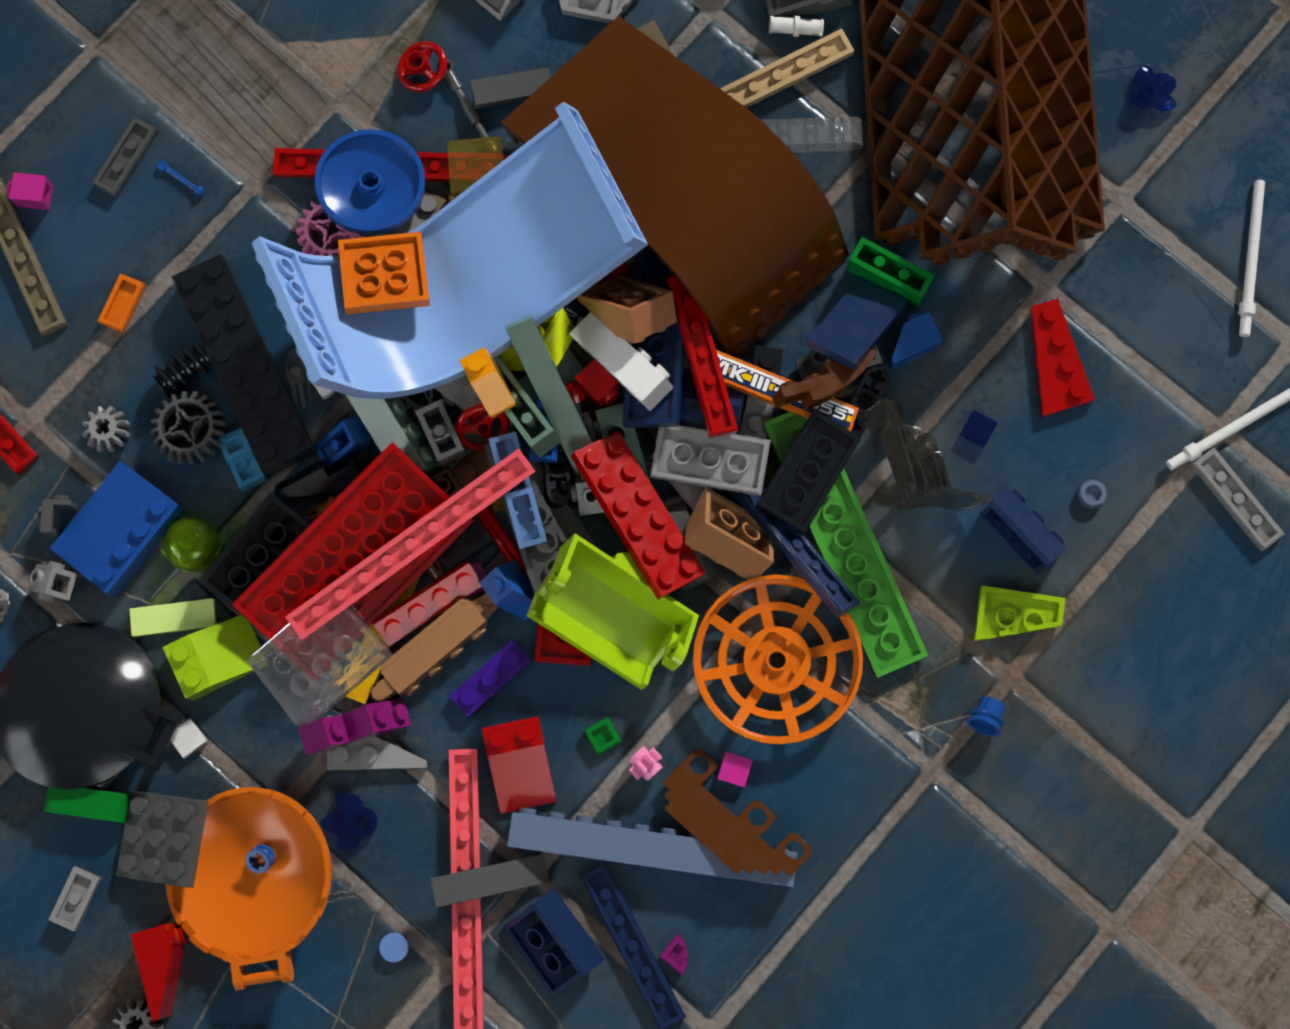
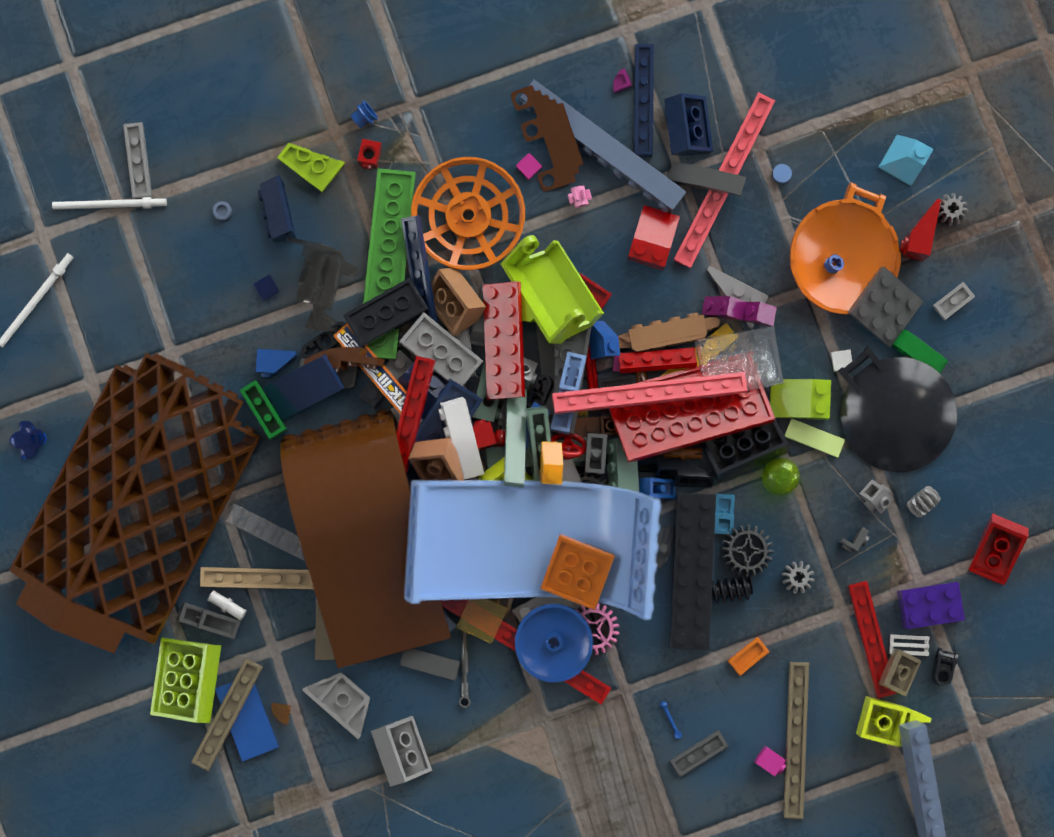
camera: 150 degrees left, 5 degrees up
(117, 529) = (822, 511): blue slope -> none
(346, 819) = (773, 261): clear blue plate -> none
(413, 58) = (478, 704): red piece -> none
(490, 678) = (643, 298): dark purple plate -> none
(602, 736) = (595, 227): green tile -> none
(945, 680) = (366, 146): none -> red brick
(1059, 367) = (195, 295): red wing -> none

